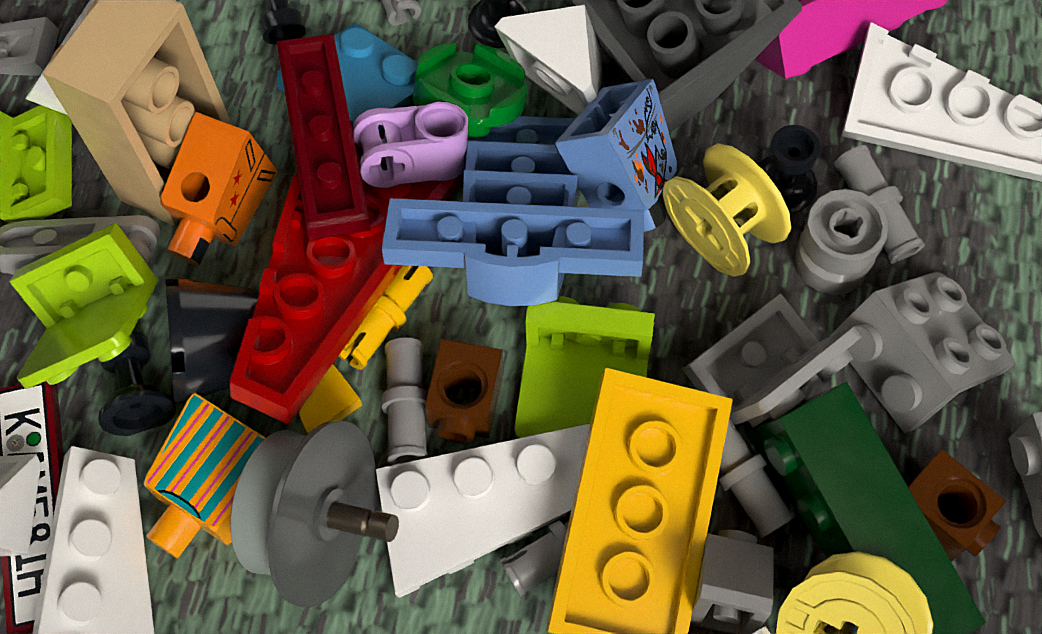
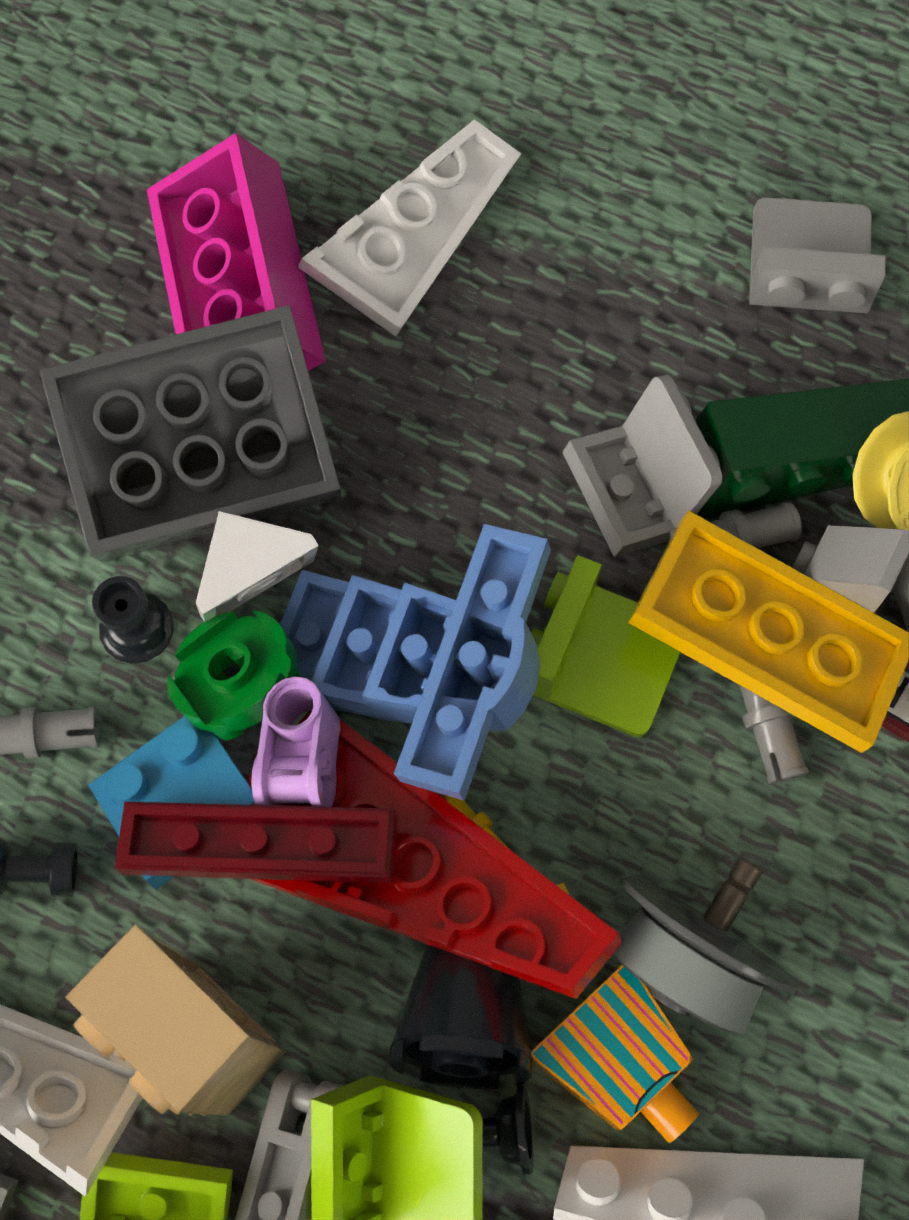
camera: 75 degrees left, 5 degrees up
(214, 186) = (252, 969): orange torso -> none
(405, 401) = (579, 835): light grey pin -> none
(459, 367) = (580, 743): reddish brown brick -> none
(476, 501) = (703, 782): white wing -> none
(622, 150) = (399, 537): medium blue torso -> none
(741, 195) = (469, 457): light yellow piece -> none
(791, 163) = (431, 400): black piece -> none
(840, 241) = (529, 370): light grey wheel -> none
(864, 176) = (488, 326): light grey pin -> none
(923, 347) = (650, 332): light grey bracket -> none
(977, 502) = (816, 349): reddish brown brick -> none

